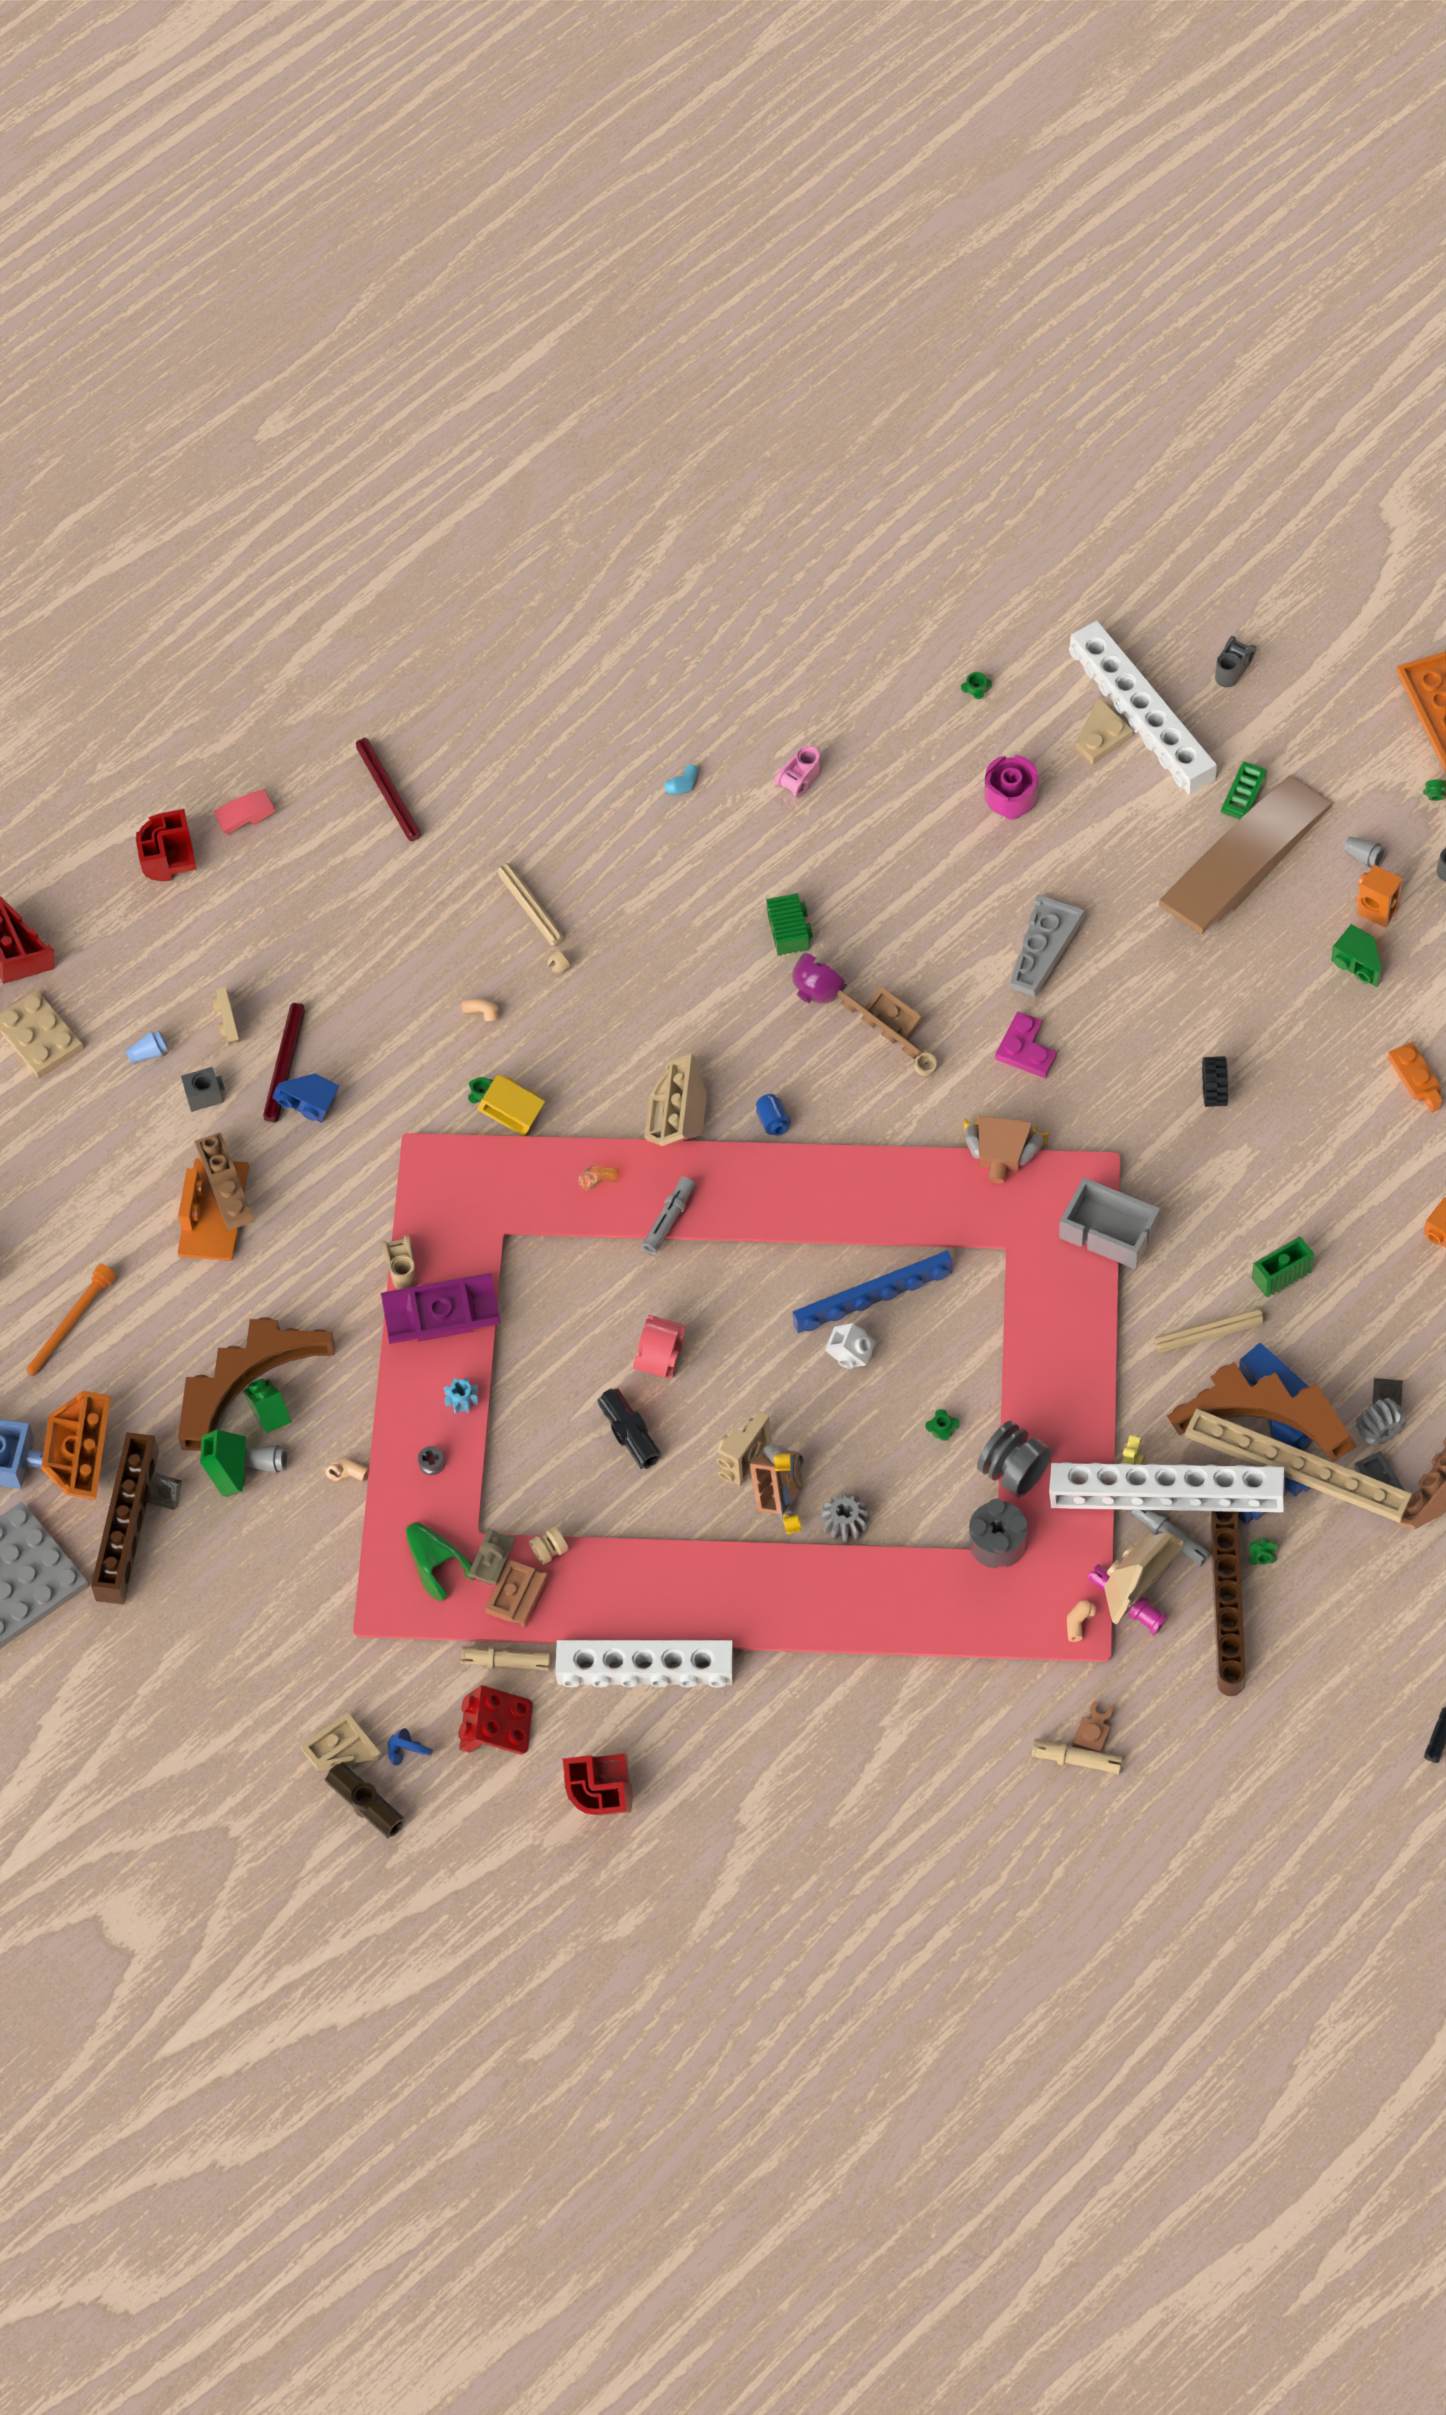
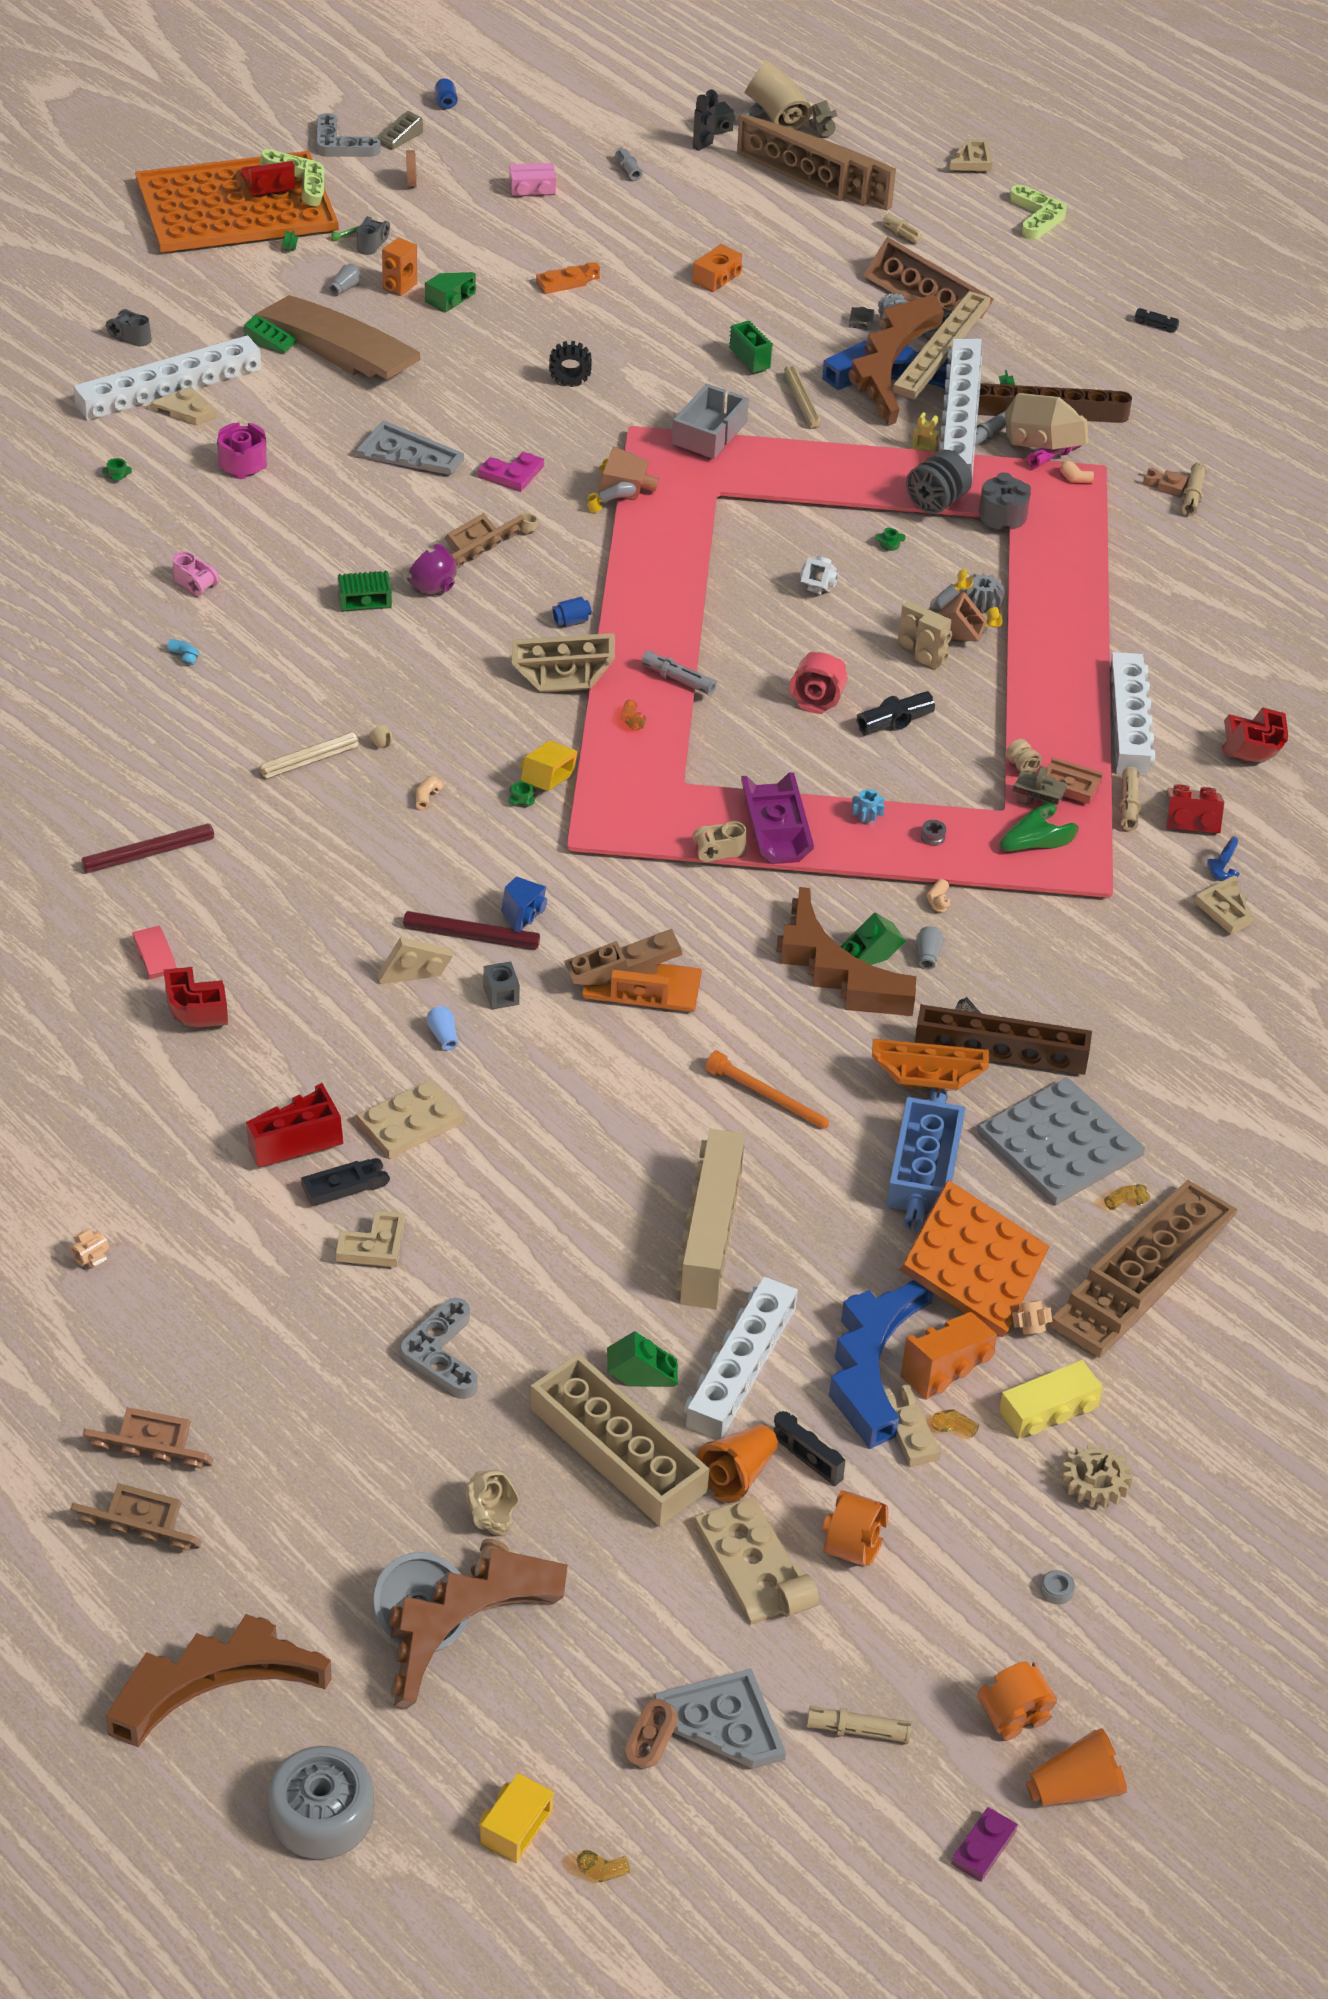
camera: 95 degrees left, 15 degrees down
(224, 1460) = (940, 966): green slope -> none
(376, 1811) = (1281, 887): dark brown piece -> none
(873, 1291) = (761, 565): blue plate -> none

